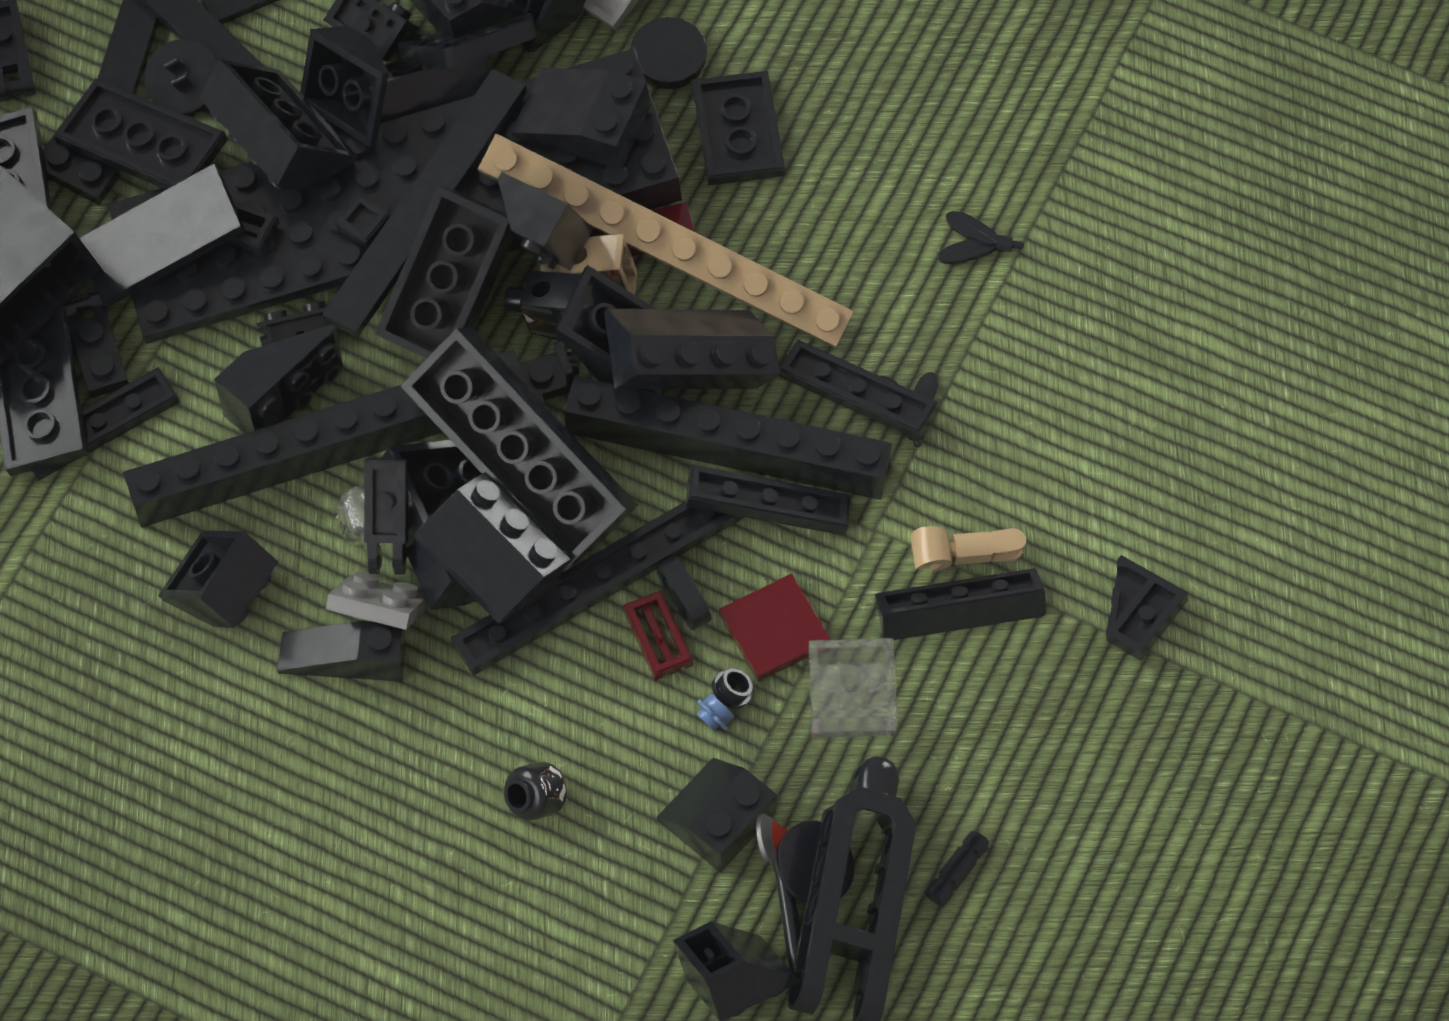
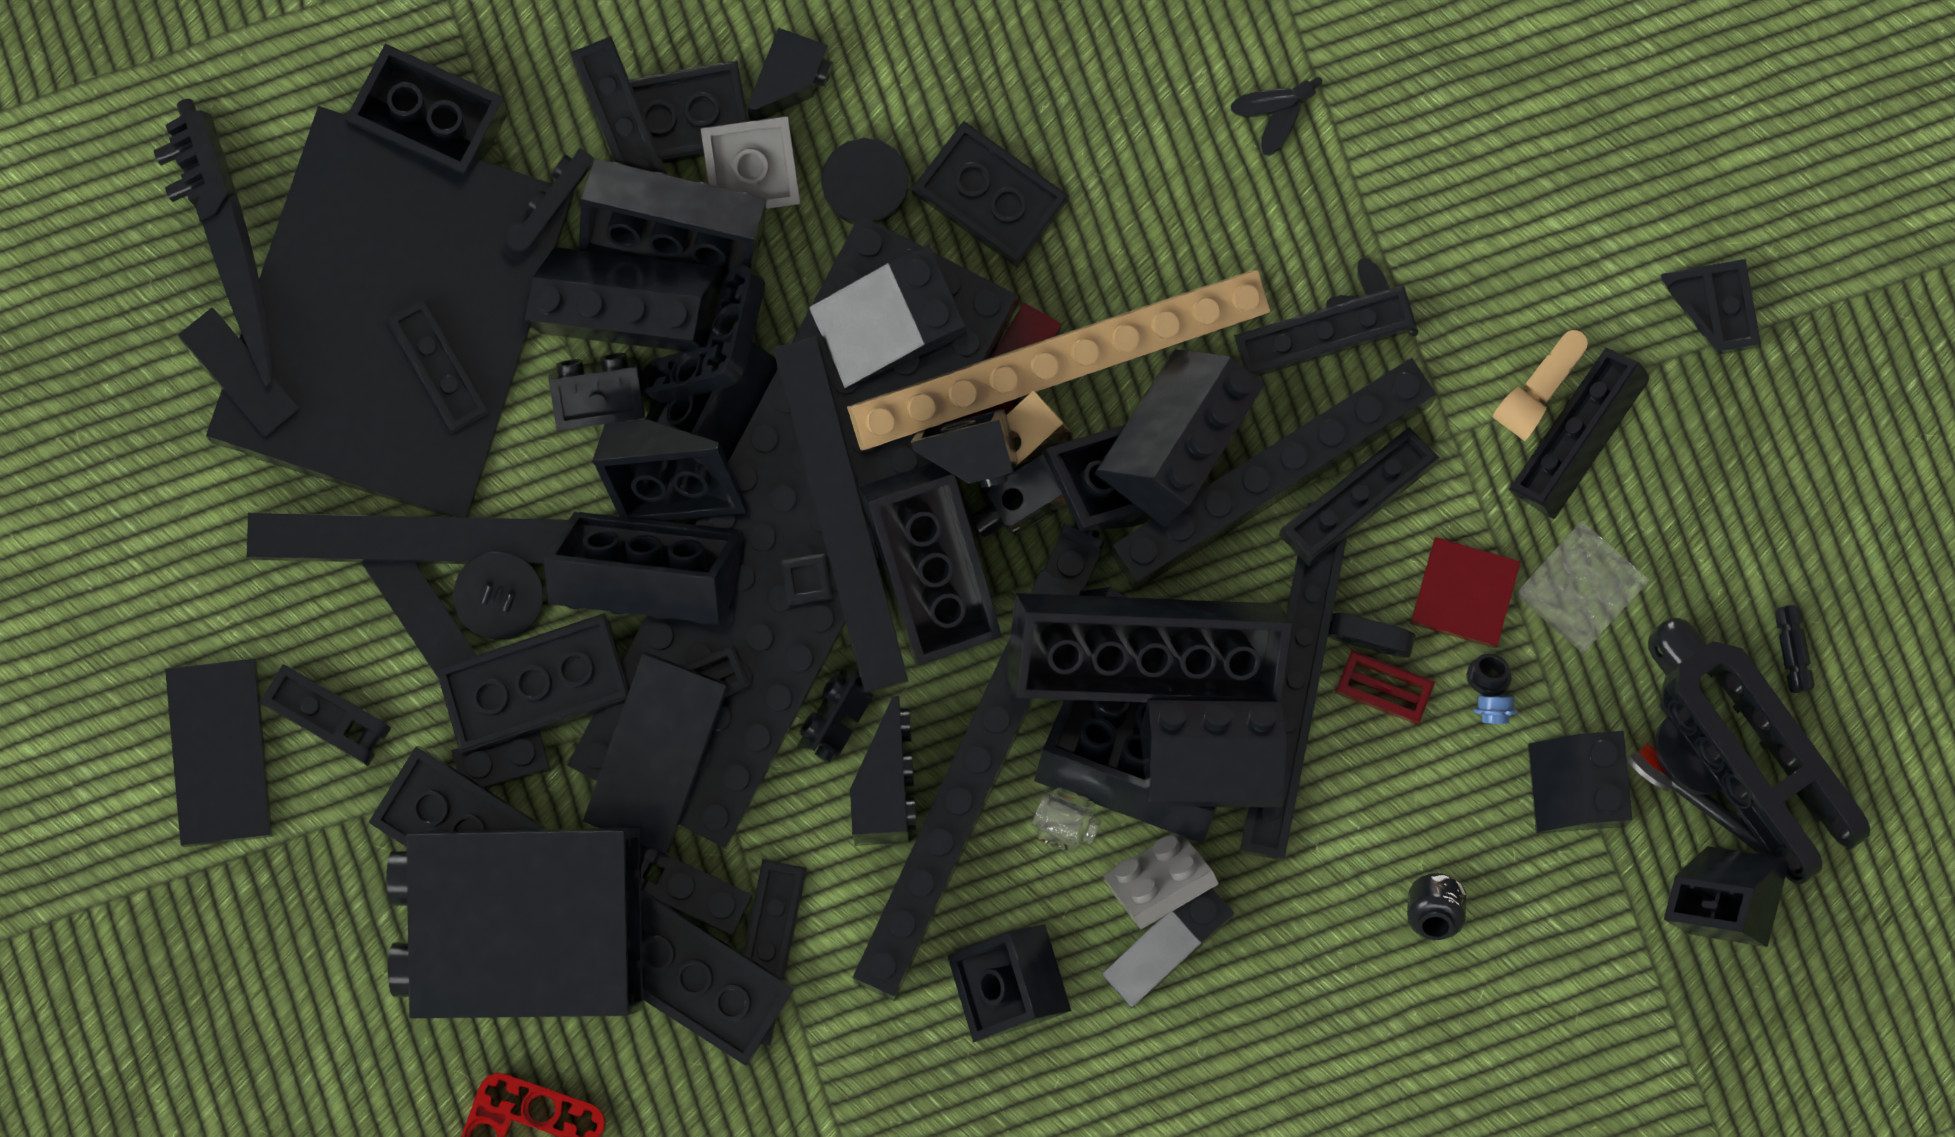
camera: 45 degrees left, 15 degrees up
(386, 511) = (1096, 802): black hinge -> none

